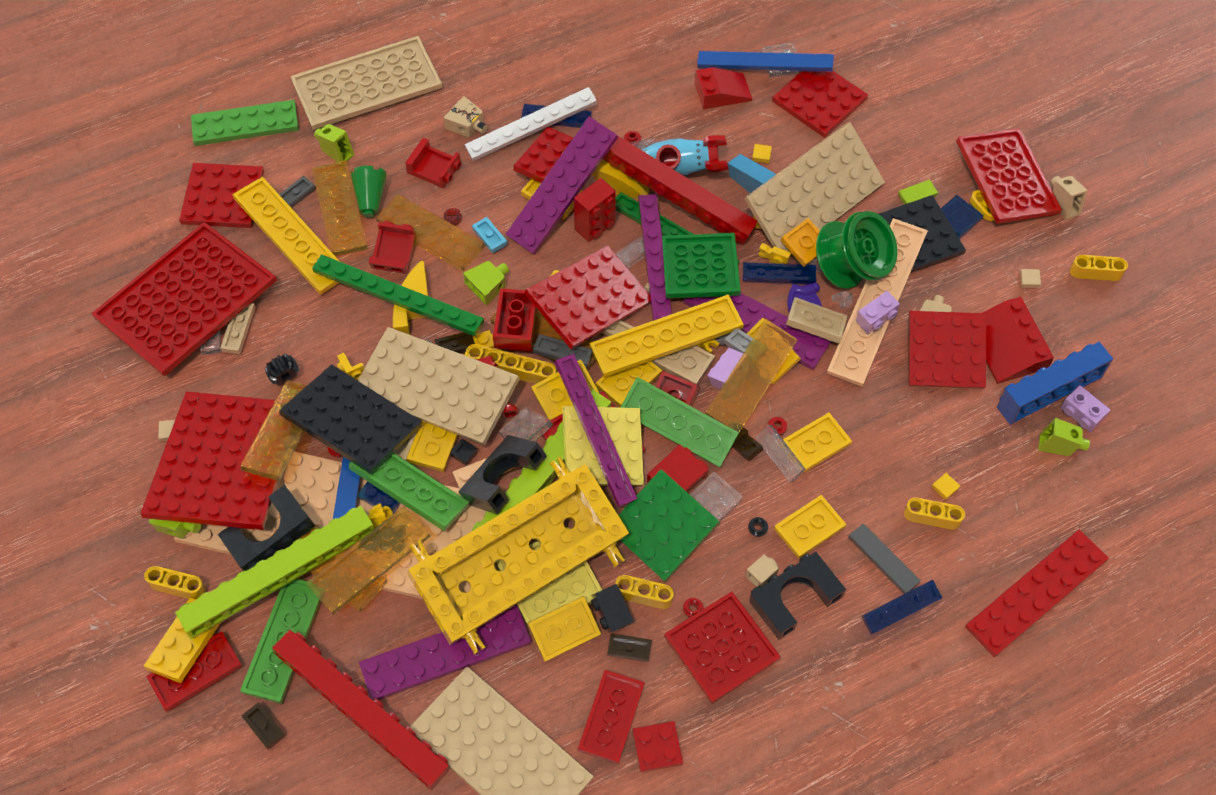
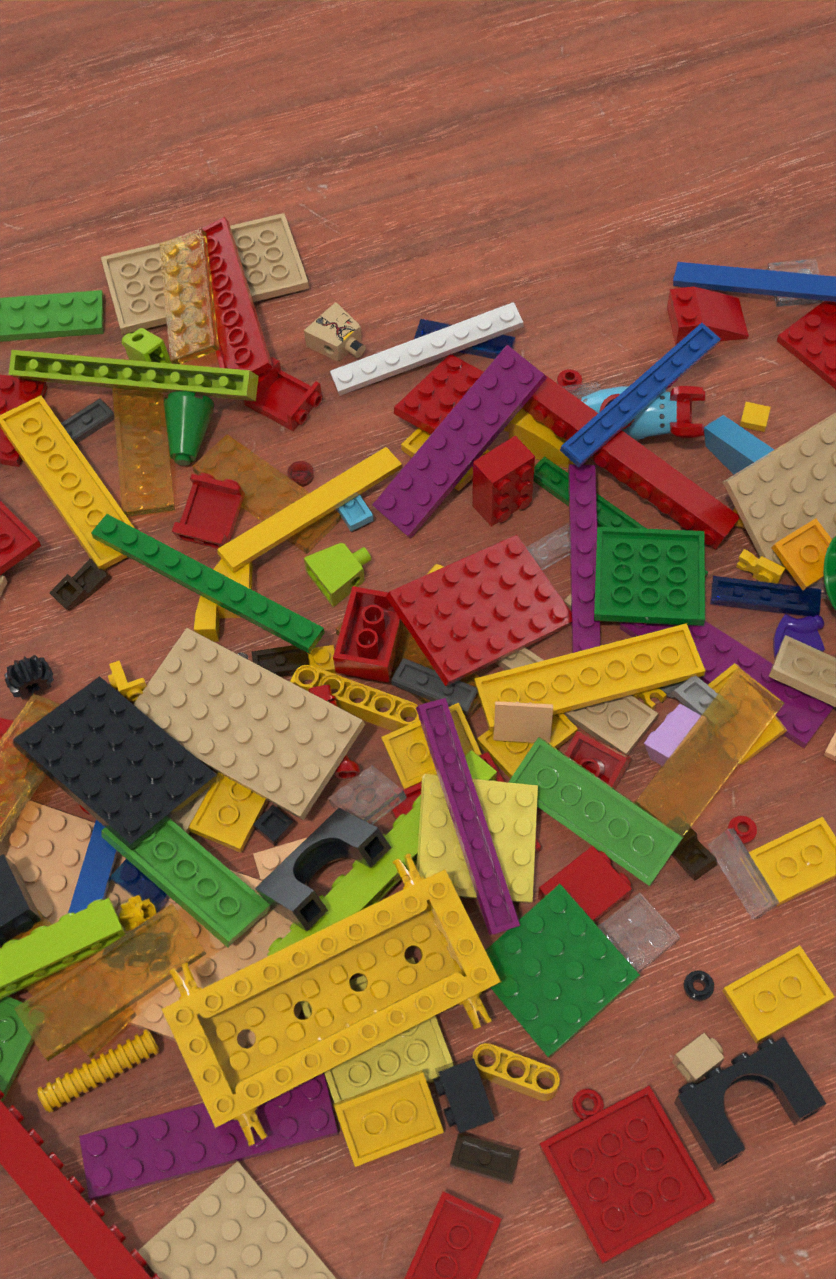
camera: 10 degrees right, 0 degrees up
(305, 308) = (76, 589): none -> dark brown slope
(326, 157) = (134, 375): none -> lime brick
(358, 99) = (188, 297): none -> clear yellow plate
(366, 619) = (97, 1071): none -> yellow piece
(387, 102) = (237, 322): none -> red plate
(462, 240) = (309, 509): none -> yellow tile
(625, 367) = (522, 721): none -> light nougat piece
(682, 144) = (639, 395): none -> blue tile

